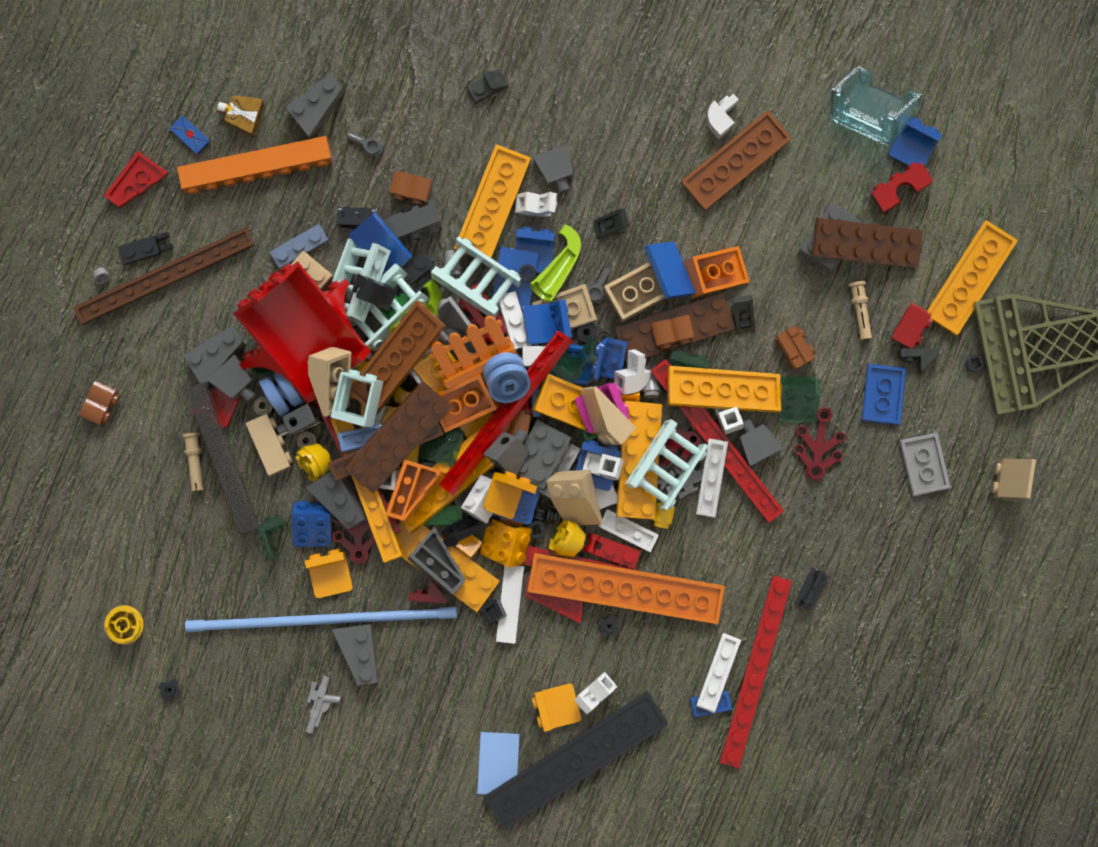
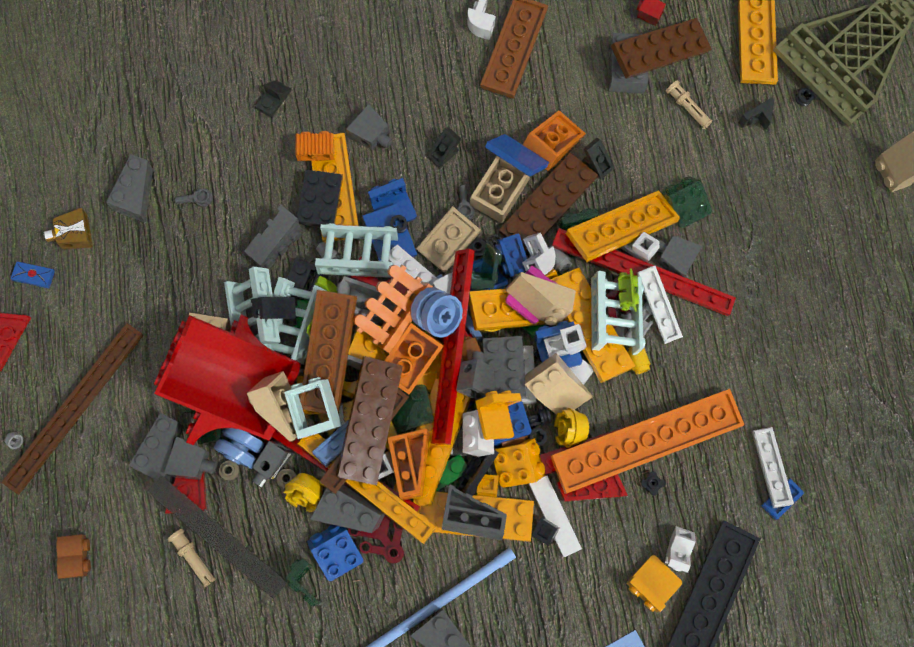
camera: 35 degrees left, 10 degrees down
(144, 248) = (42, 394): black hinge -> none
(255, 164) = (104, 267): orange brick -> none
(269, 445) = (255, 501): tan brick -> none
(304, 242) = (191, 303): sand blue plate -> none
(329, 573) = (377, 586): light orange bracket -> none
(352, 216) = (222, 263): black hinge -> none
(376, 231) = (244, 258): blue tile -> none
(410, 188) = (254, 211): dark orange brick -> none
(434, 594) = (483, 548): dark red slope -> none
(472, 209) = (319, 198): none -> black plate
(495, 158) = (315, 146): none -> orange brick
(535, 204) = (372, 167): white brick -> none
(545, 320) = (439, 252): blue bracket -> none
(553, 277) = (422, 215): lime animal -> none
(613, 551) = (615, 416): red plate -> none
(628, 531) = (618, 390): white plate -> none
(672, 331) = (550, 203): dark orange brick -> none
(692, 446) = (630, 297): none -> lime hinge
(755, 671) = (802, 450): red plate -> none
(794, 347) = (656, 162): dark orange brick -> none
(811, 589) = (800, 349): black hinge -> none
(819, 447) = (727, 231): dark red plant -> none
(883, 394) = (750, 161): blue tile -> none
(911, 325) = (738, 92): red brick -> none
(924, 464) = (820, 196): light grey tile -> none

